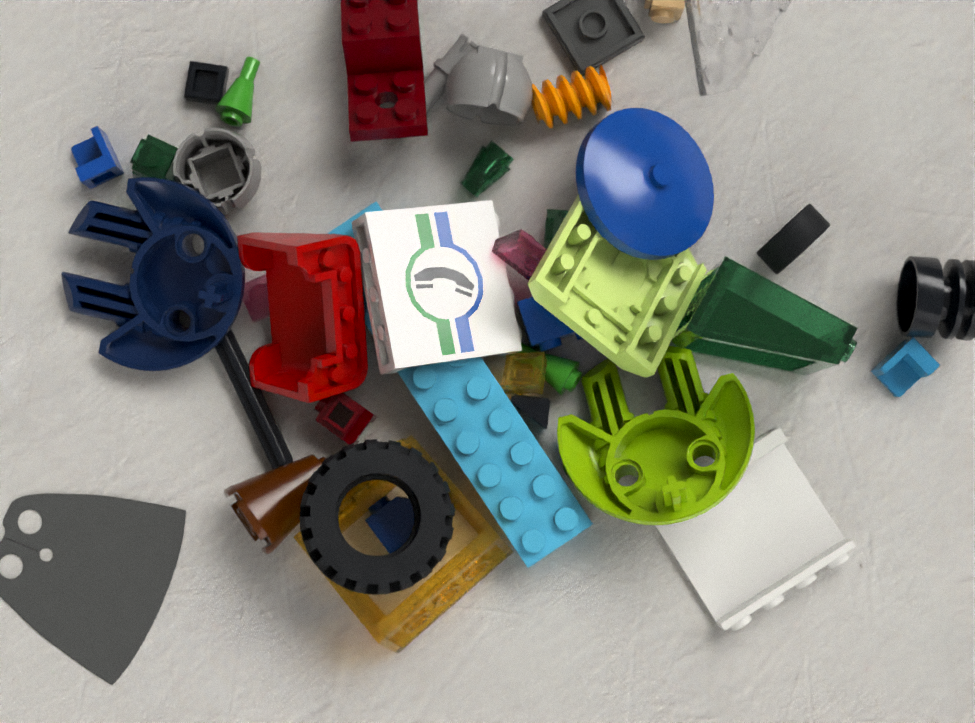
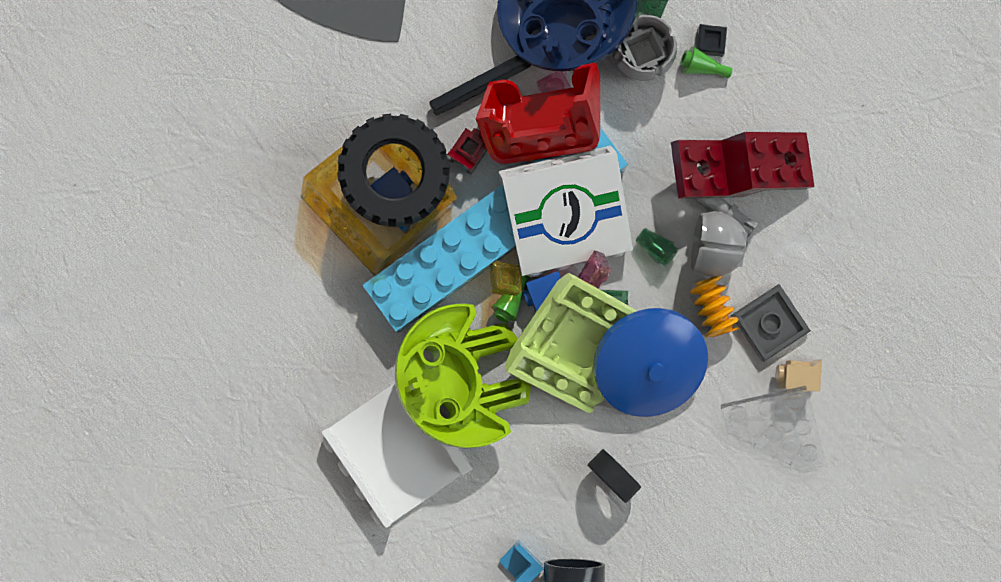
camera: 90 degrees right, 0 degrees up
(272, 501) = (406, 96): reddish brown cone -> none
(534, 407) = (481, 287): black slope -> none
(761, 324) = (547, 445): clear green windscreen -> none

